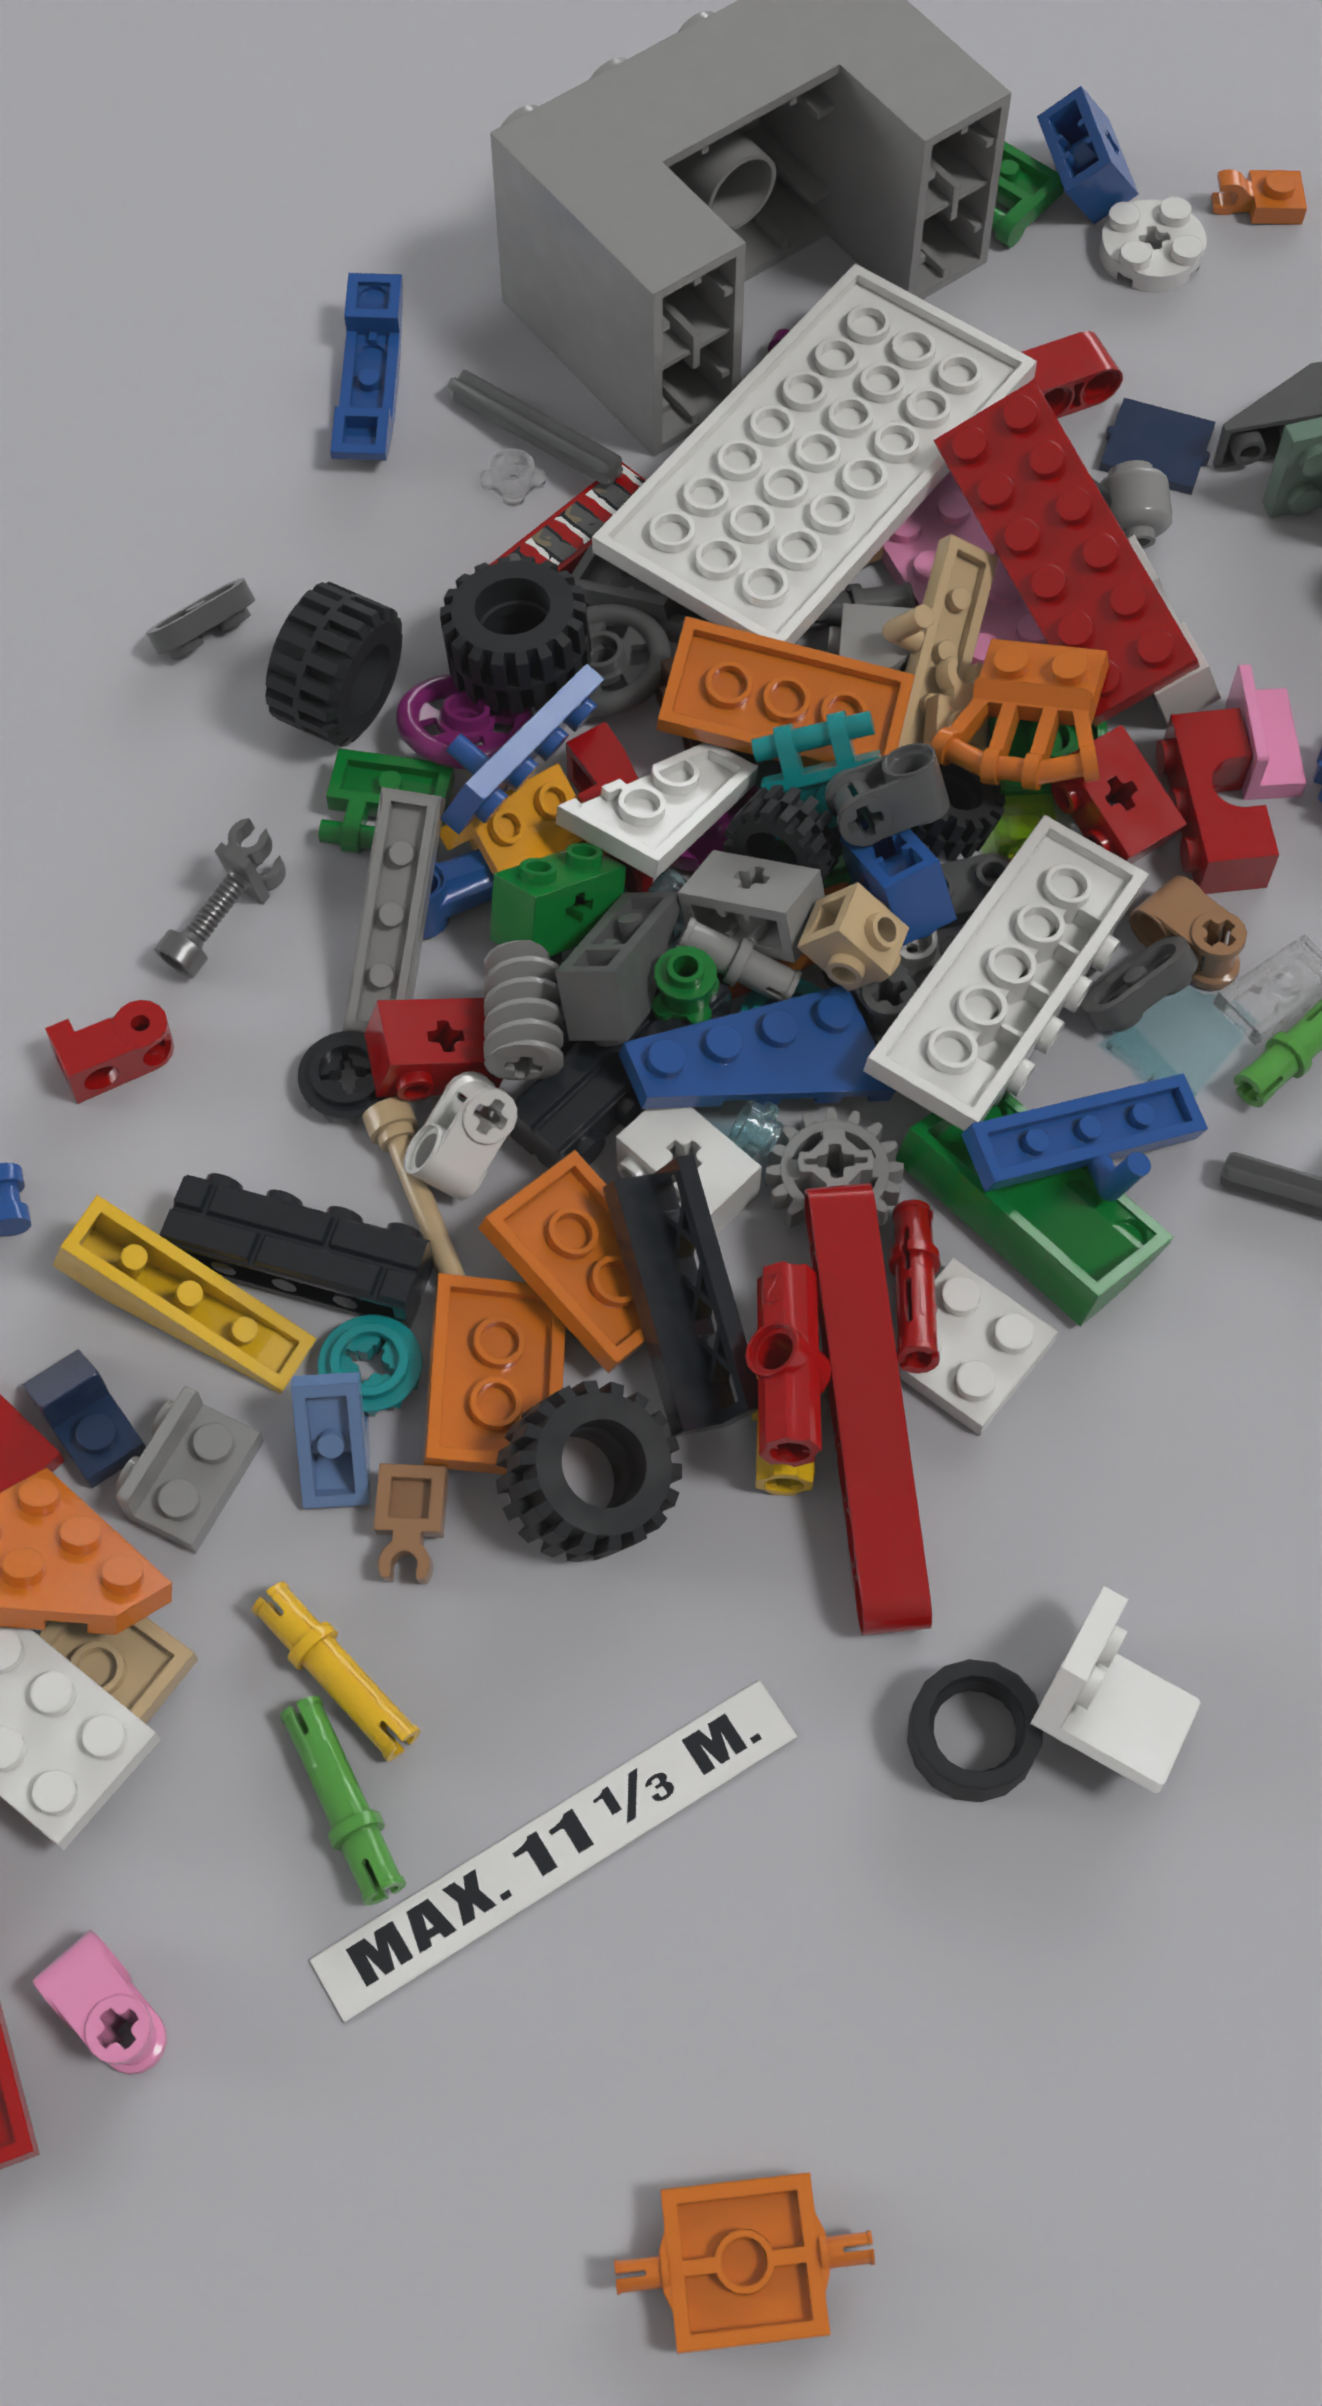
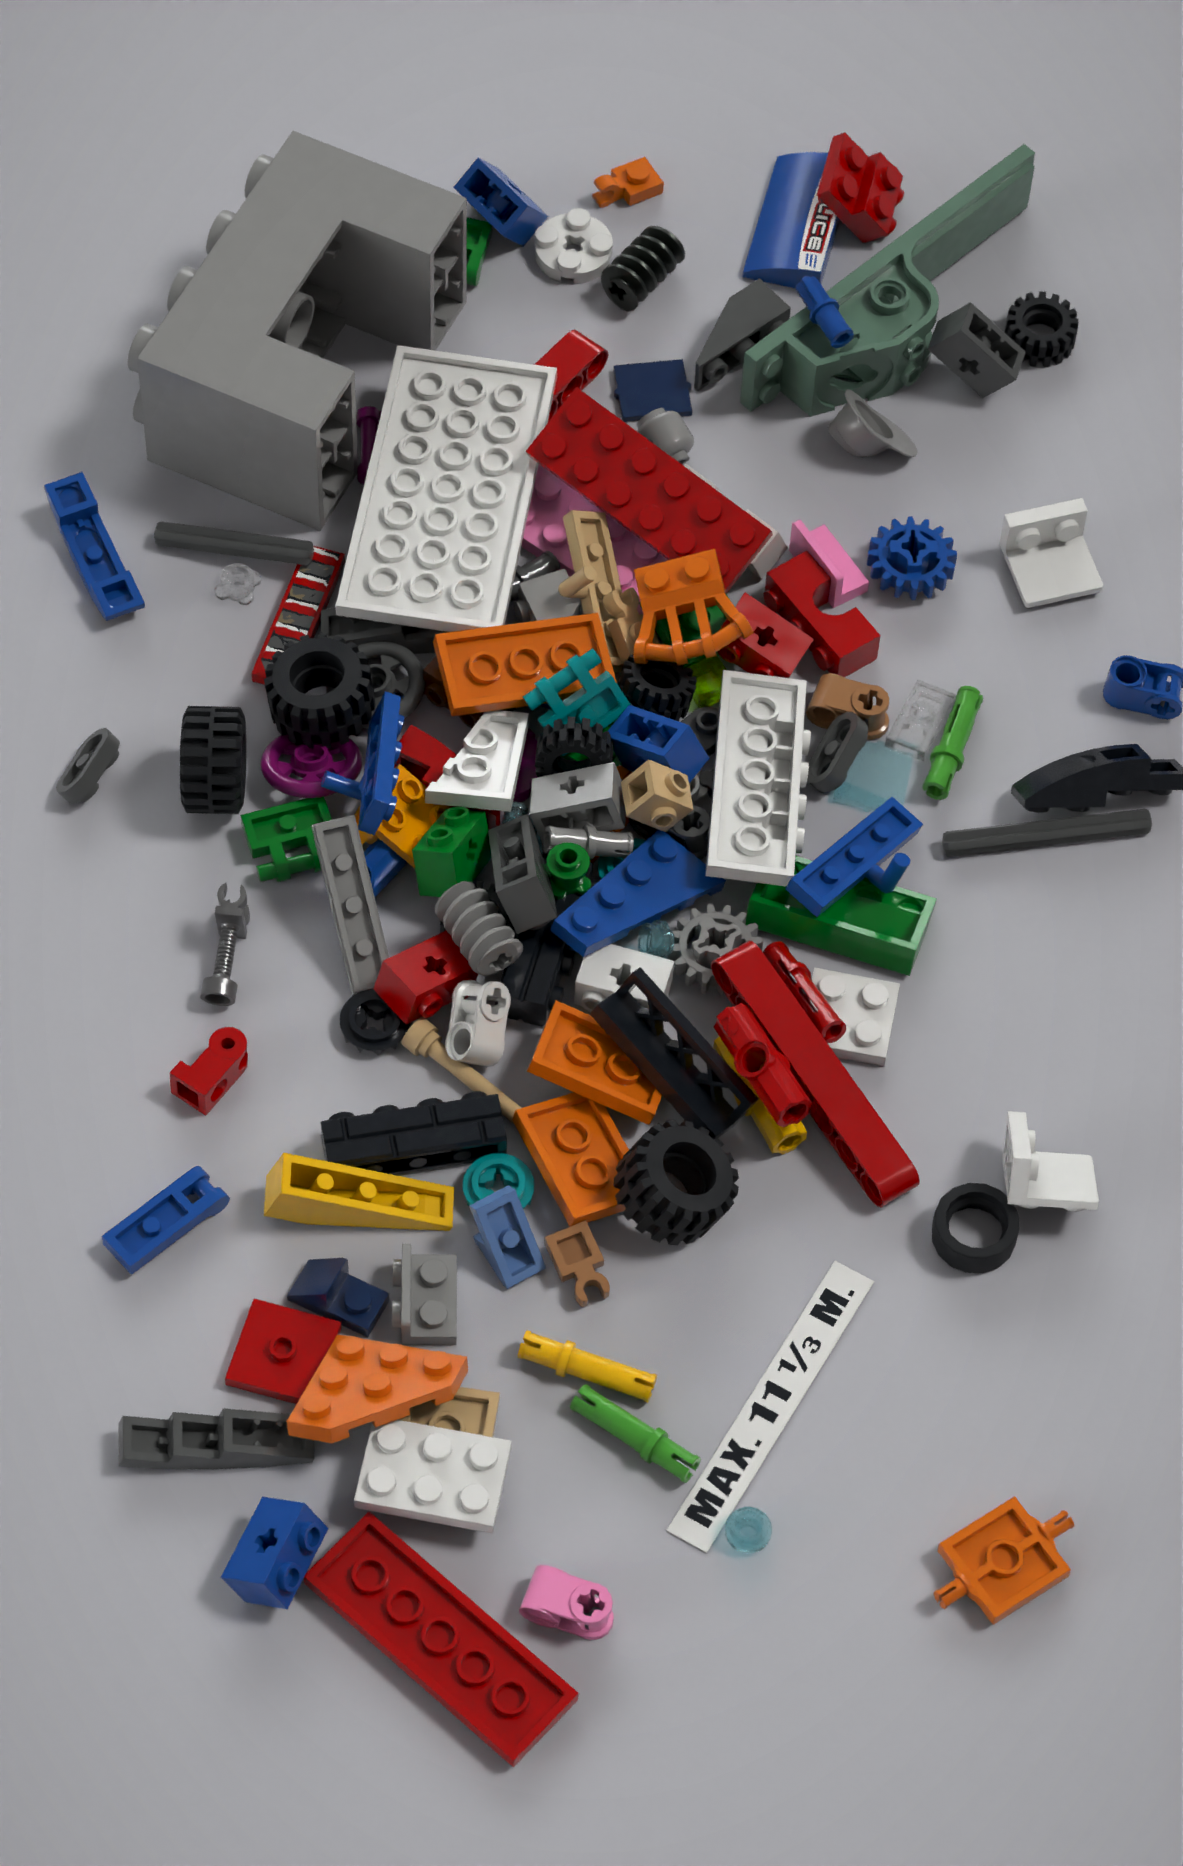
camera: 30 degrees left, 5 degrees down
(397, 2004) = (748, 1517): none -> clear light blue plate
(892, 794) = (634, 697): dark grey piece -> none
(1222, 291) = (642, 267): none -> pearl dark grey piece

